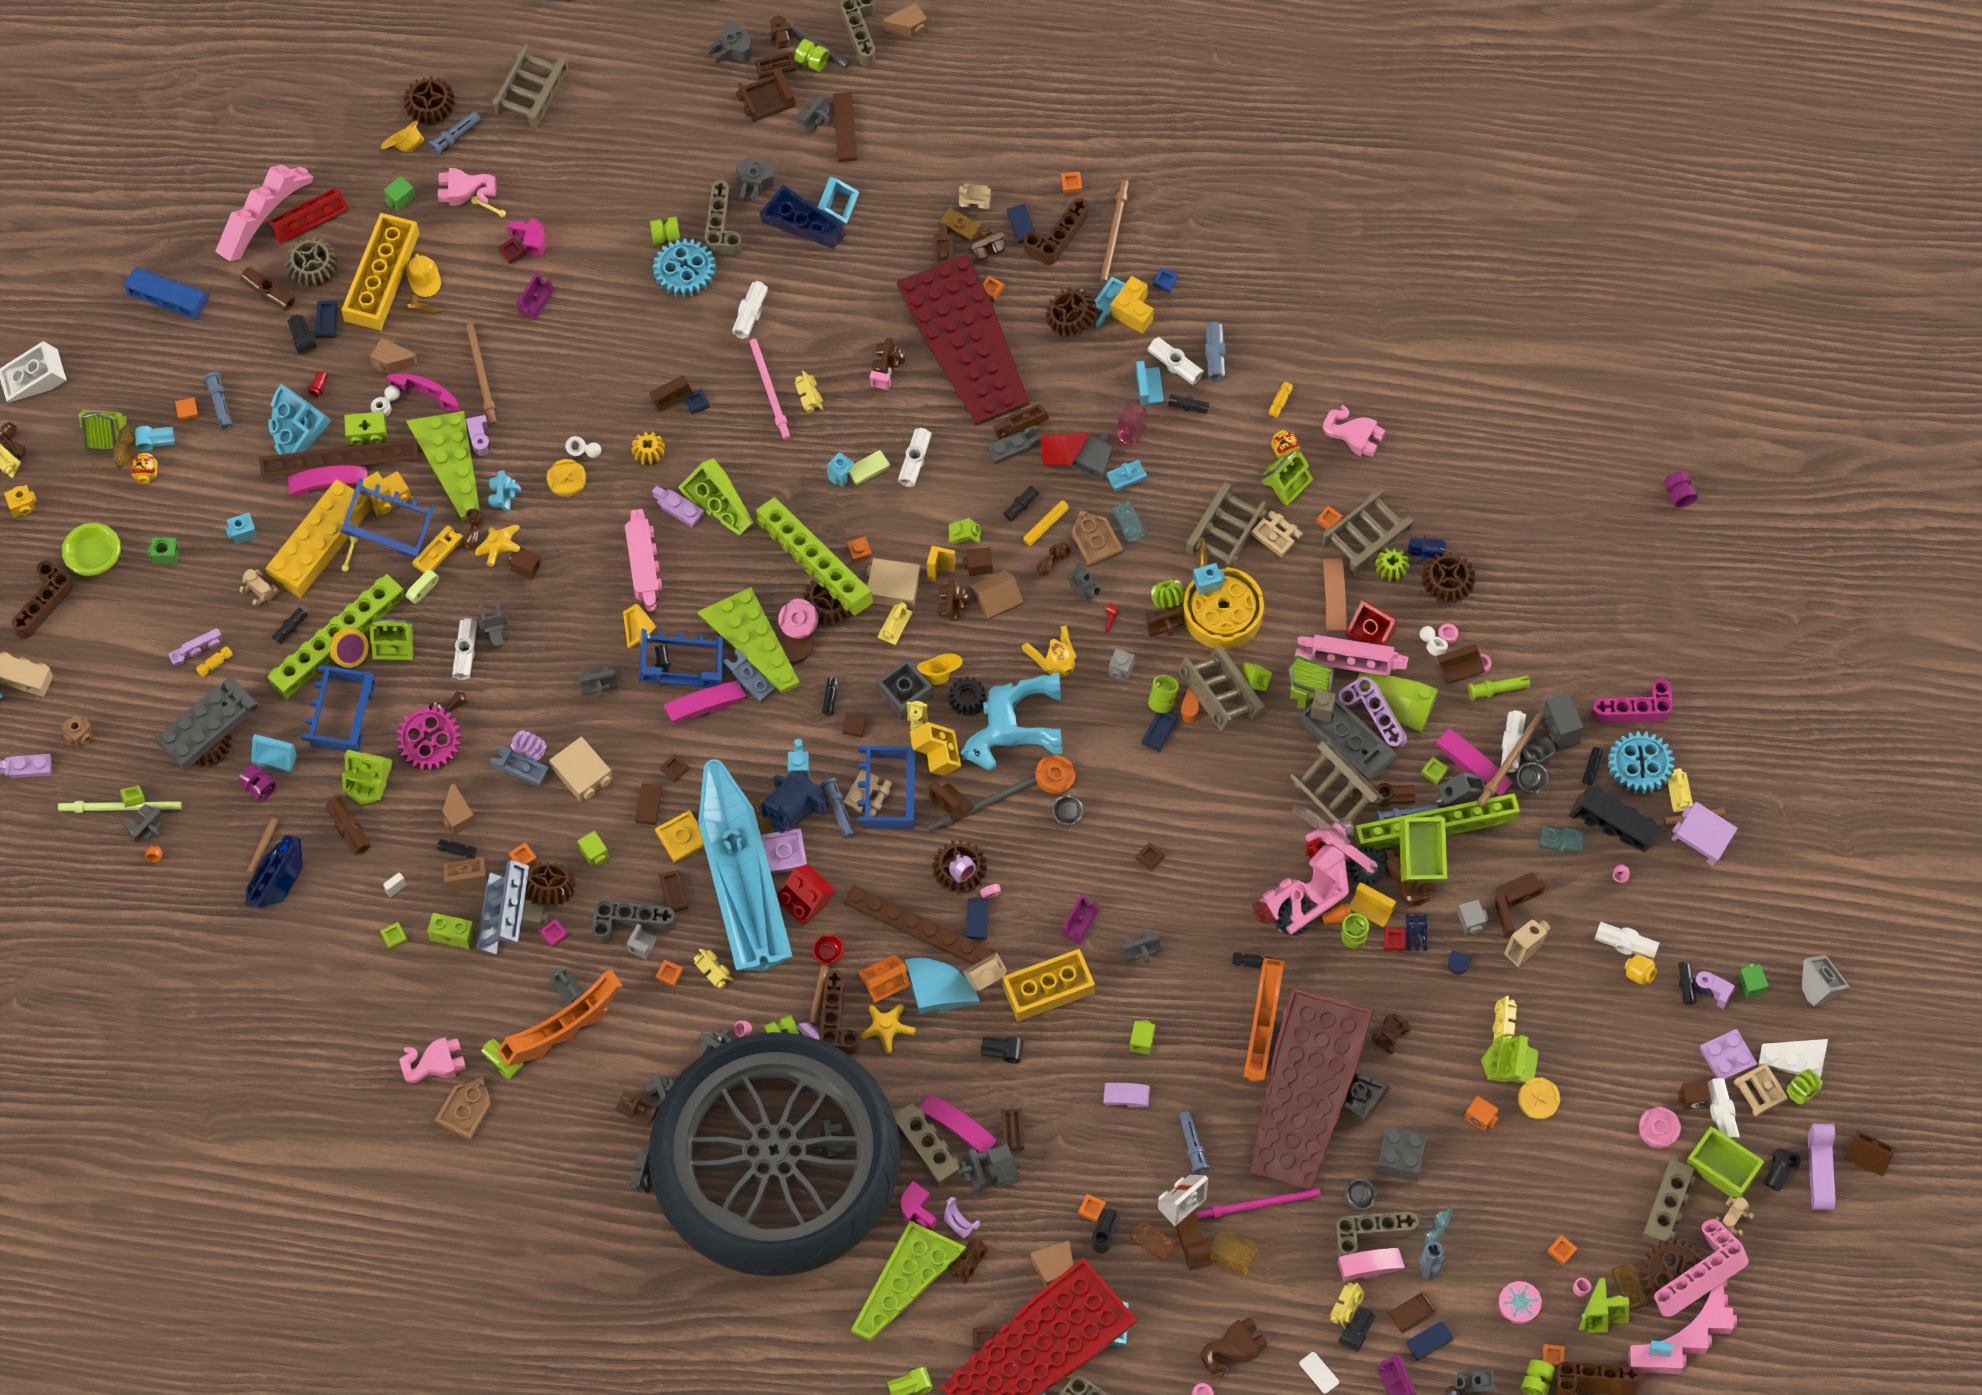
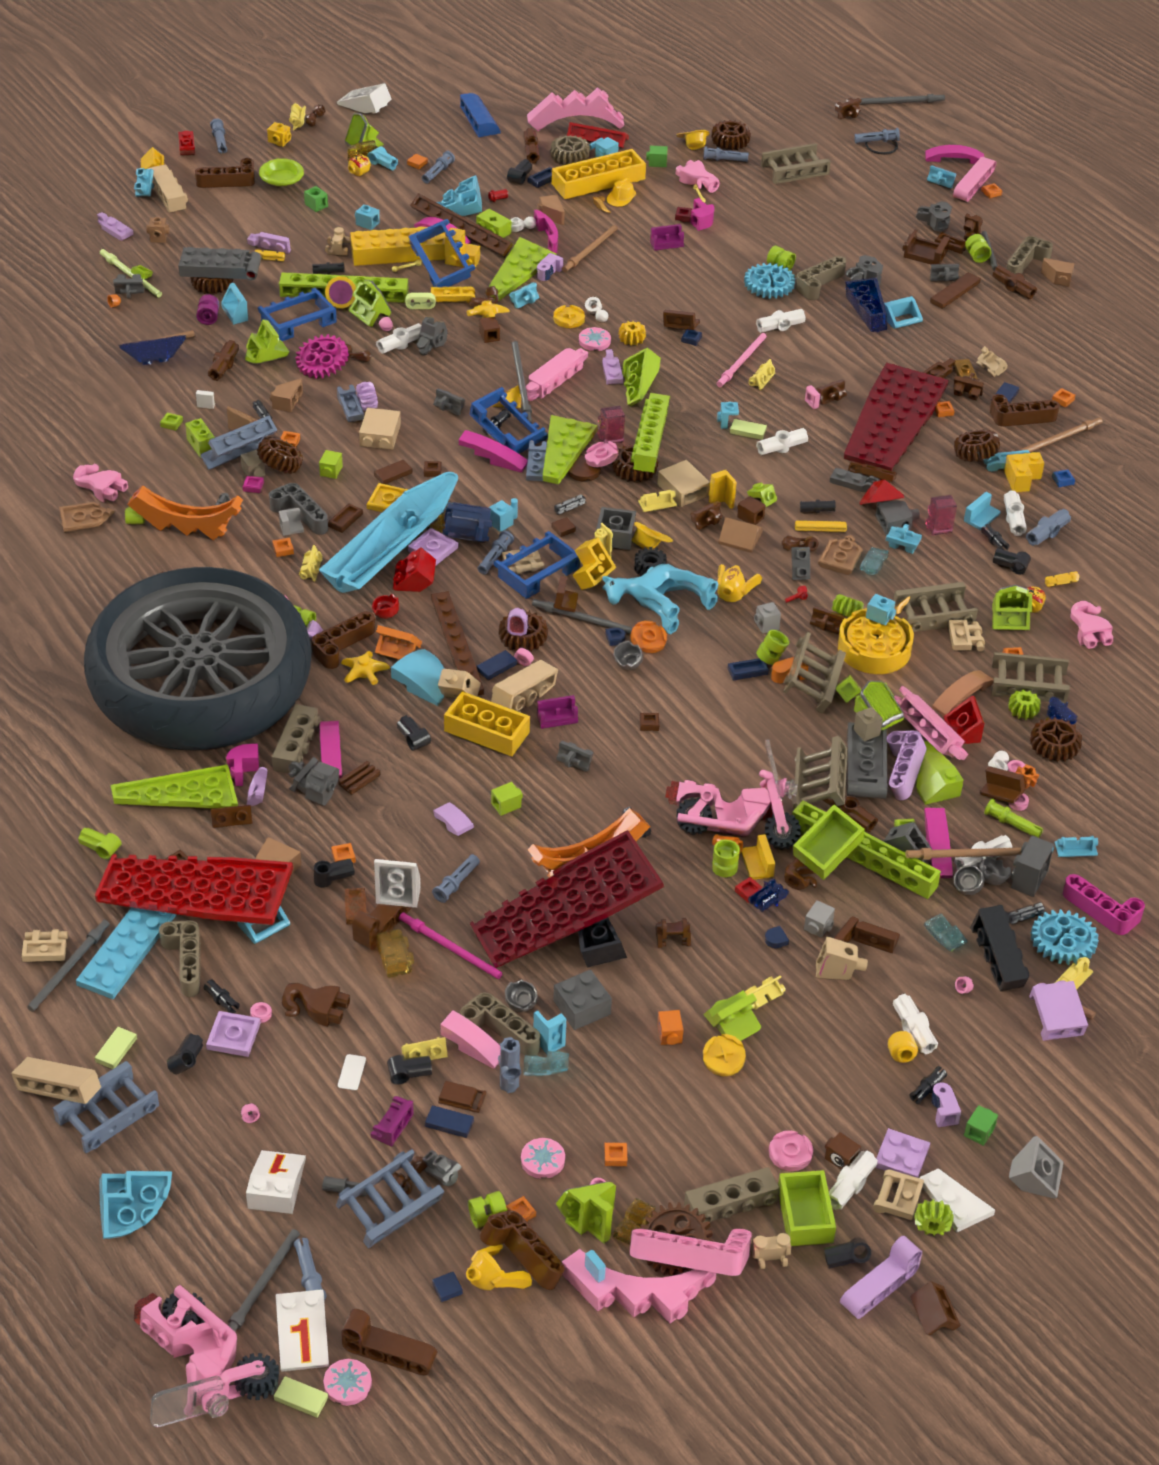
camera: 45 degrees right, 20 degrees down
(340, 229) = (604, 146): none -> medium azure brick
(429, 644) = (386, 324): none -> bright pink hinge
(621, 484) = (594, 338): none -> bright pink tile
(670, 625) = (521, 381): none -> dark grey bar
(769, 578) = (611, 424): none -> clear pink brick
(859, 549) = (688, 455): orange plate -> none
(884, 70) = (1014, 282): none -> reddish brown piece
(1027, 798) = (615, 636): none -> dark blue tile
(1033, 923) = (524, 686): none -> tan wedge
(1232, 414) = (1017, 562): none -> black piece
(1418, 1207) = (551, 1031): none -> medium azure panel
(1466, 636) = (1030, 775): none -> orange gear
(1564, 668) = (1072, 847): none -> medium azure hinge

